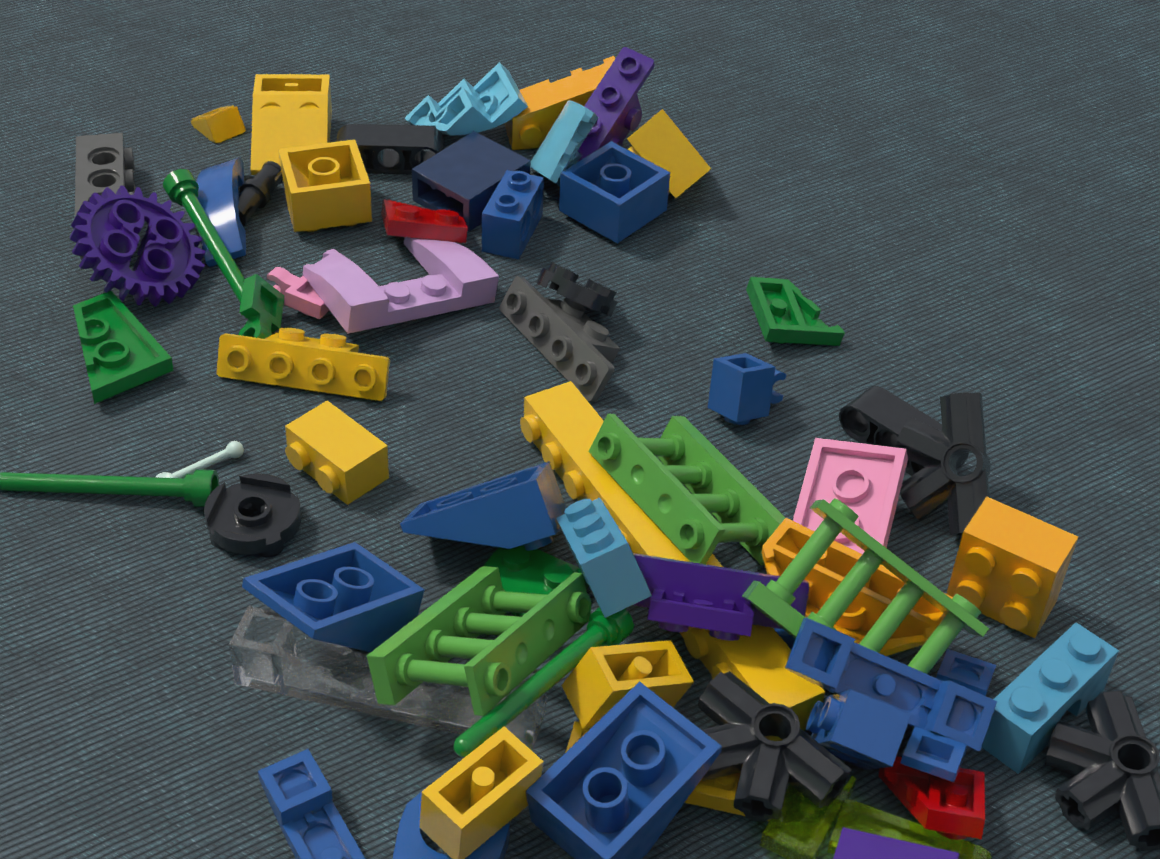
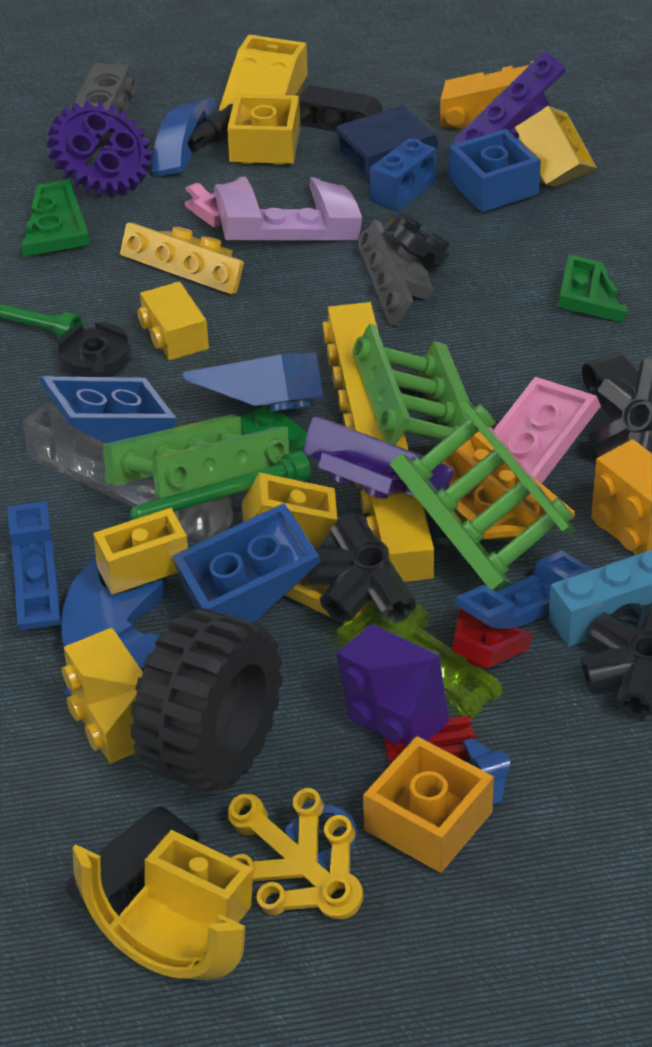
camera: 25 degrees right, 0 degrees up
(183, 190) = (151, 114): green piece -> none
(219, 124) = (214, 72): yellow slope -> none
(233, 450) = (104, 306): light aqua hinge -> none
(261, 306) = (170, 208): green plate -> none
(423, 223) = (328, 169): red wing -> none
(472, 108) = (415, 85): medium azure slope -> none
(563, 140) = (467, 115): medium azure slope -> none
(603, 556) = (303, 415): dark azure arch -> none
(743, 388) = (510, 333): blue brick -> none
(858, 729) = (436, 574): blue brick -> none
(934, 705) = (471, 548): blue slope -> none

